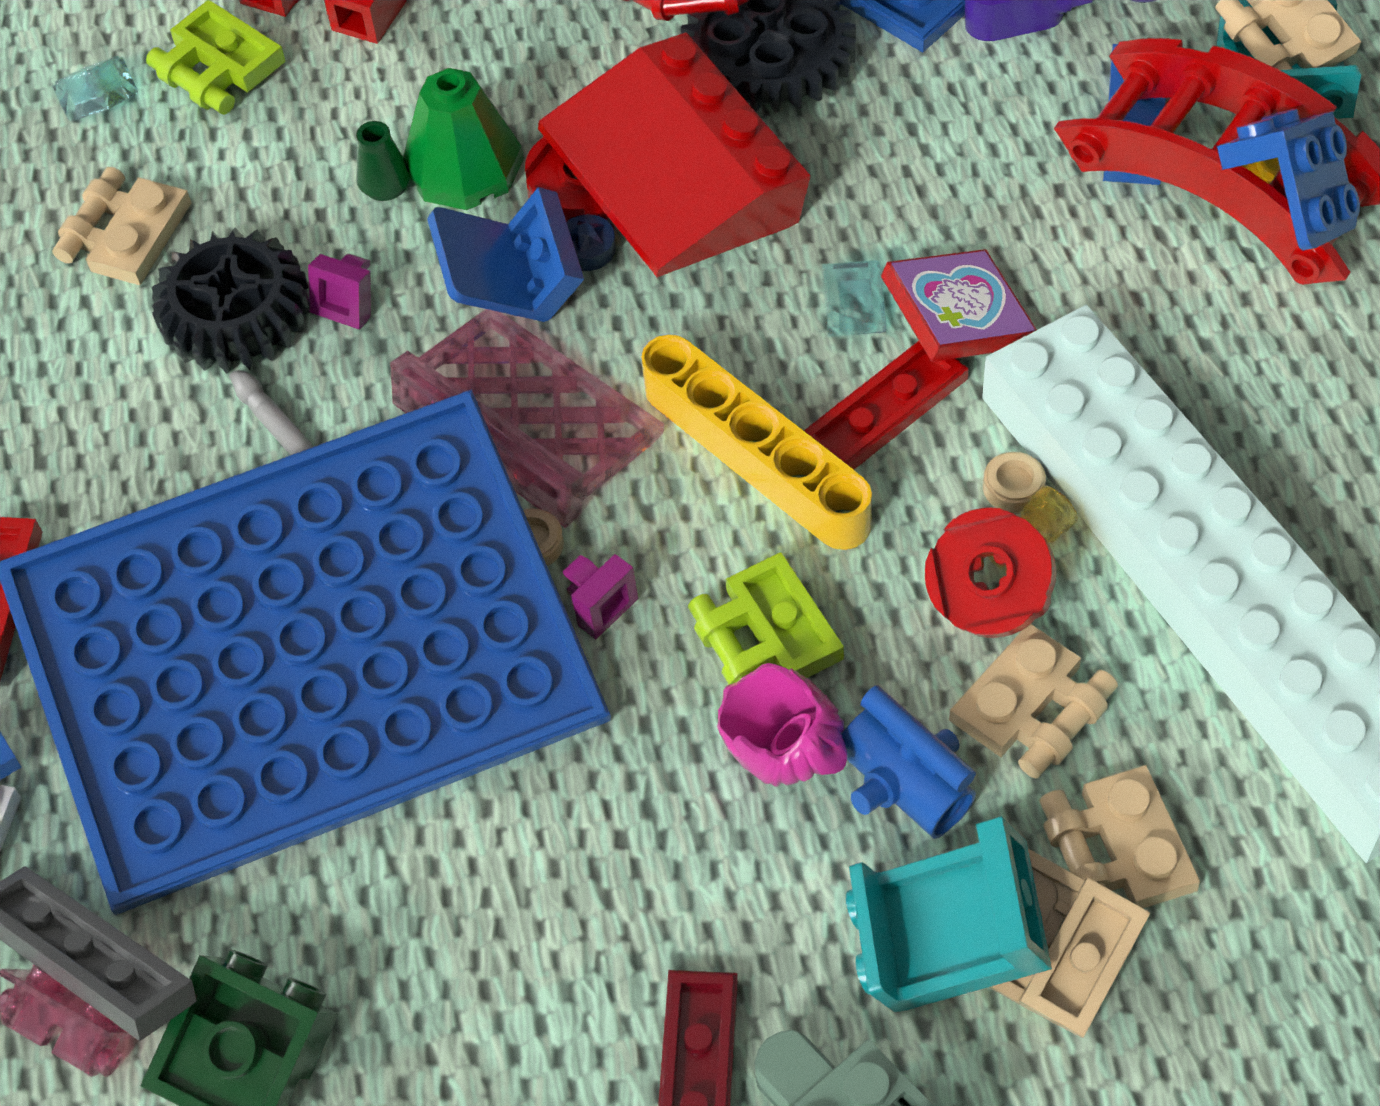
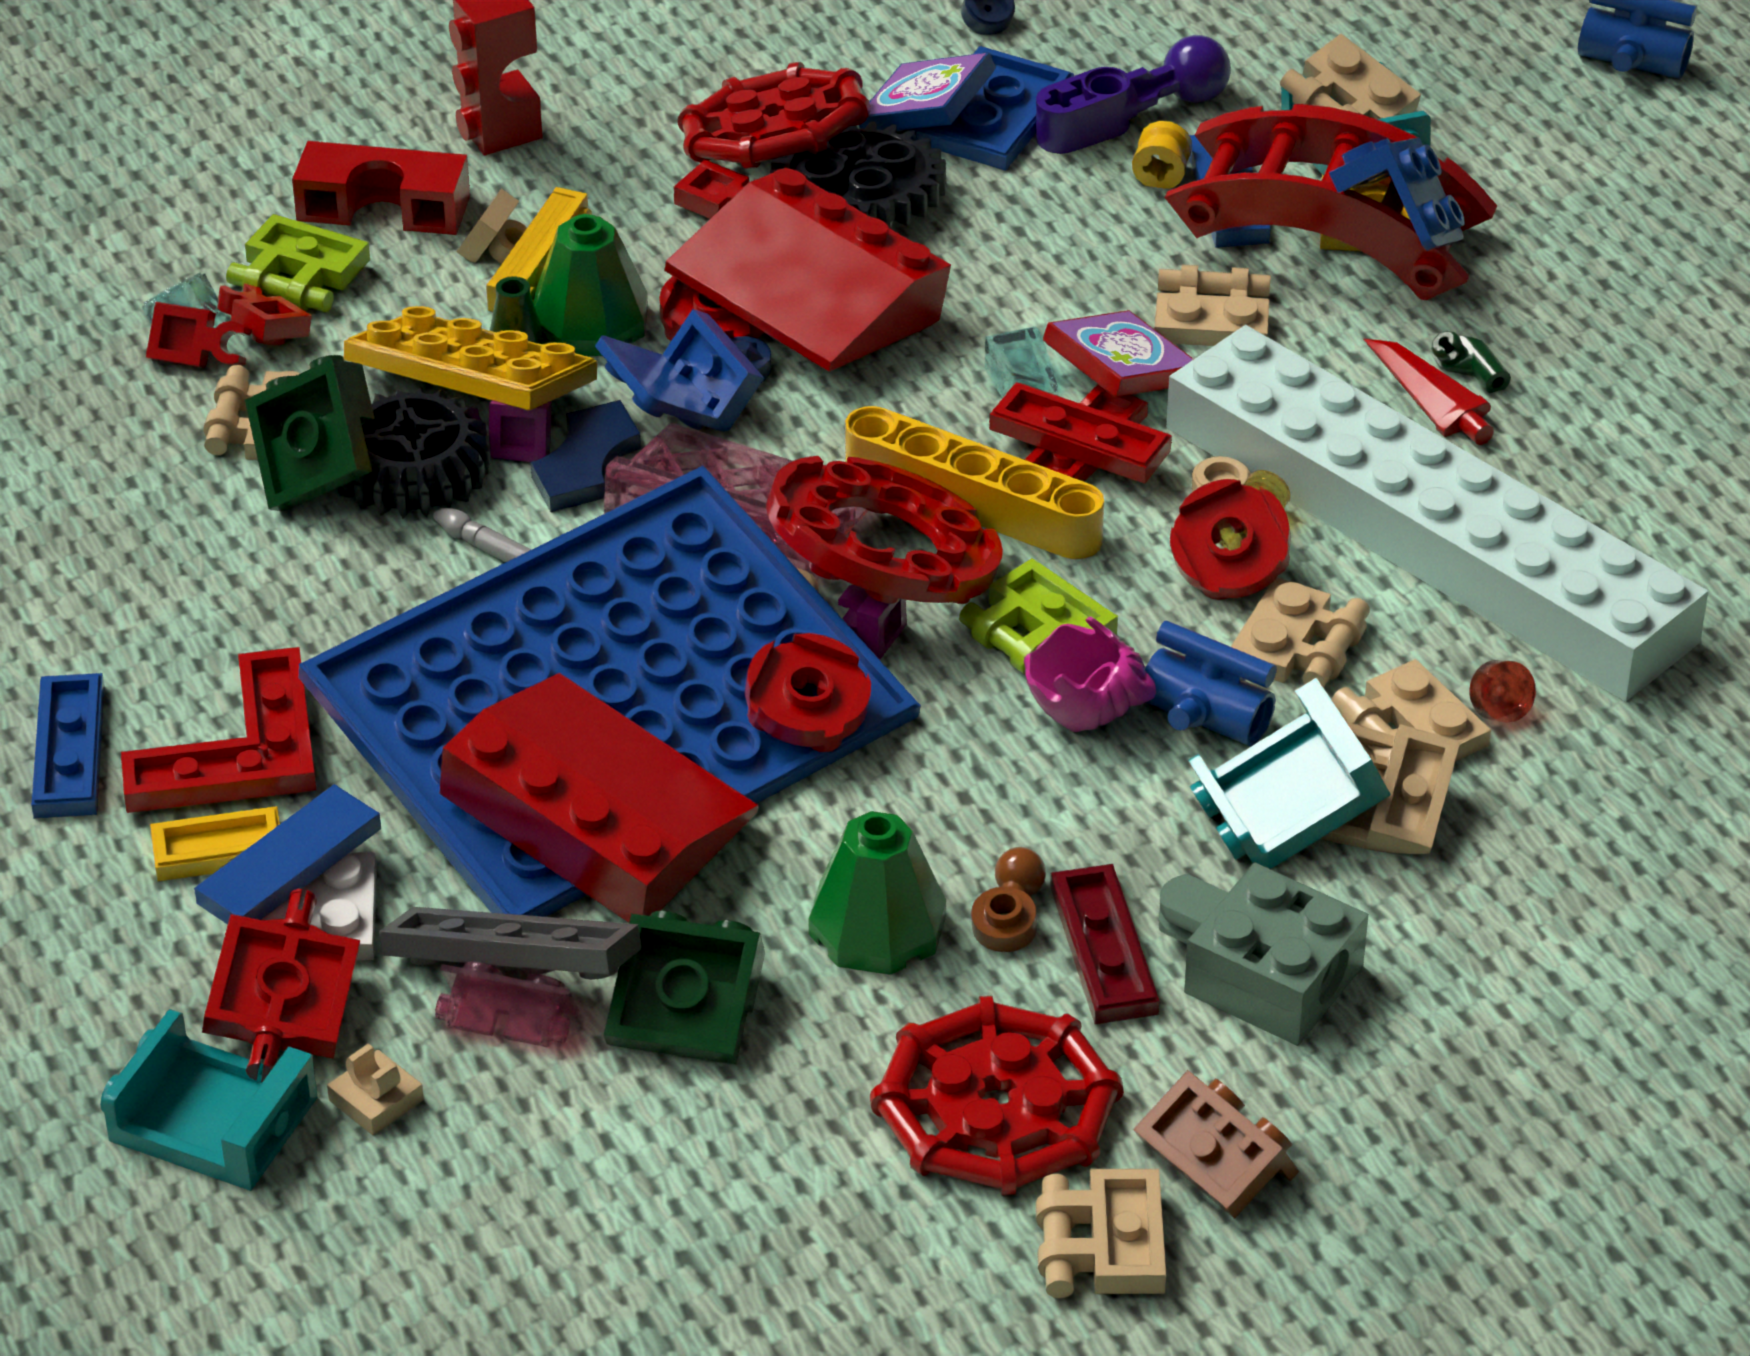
camera: 20 degrees left, 15 degrees down
(82, 127) = (189, 335): none -> red plate
(125, 268) = (311, 431): none -> dark green plate
(161, 115) = (270, 318): none -> red plate
(234, 775) = (591, 795): none -> red slope
(319, 204) = (470, 358): none -> yellow tile
(401, 47) = (494, 230): none -> tan tile
(411, 315) = (578, 467): none -> dark blue tile
(466, 50) = (533, 247): none -> yellow piece
(473, 981) = (877, 898): none -> green cone
(490, 725) = (801, 719): none -> red plate
(622, 32) = (708, 188): none -> red plate
(634, 967) = (1019, 875): none -> dark orange plate
(645, 431) = (802, 516): none -> red plate
(883, 399) = (1080, 432): none -> red tile
(1068, 272) = (1208, 318): none -> tan plate
(1078, 65) = (1172, 146): none -> yellow wheel
(1227, 833) = (1502, 690): none -> clear red tile
(1280, 417) = (1438, 395): none -> red bar
(1325, 371) = (1471, 358): none -> dark green arm

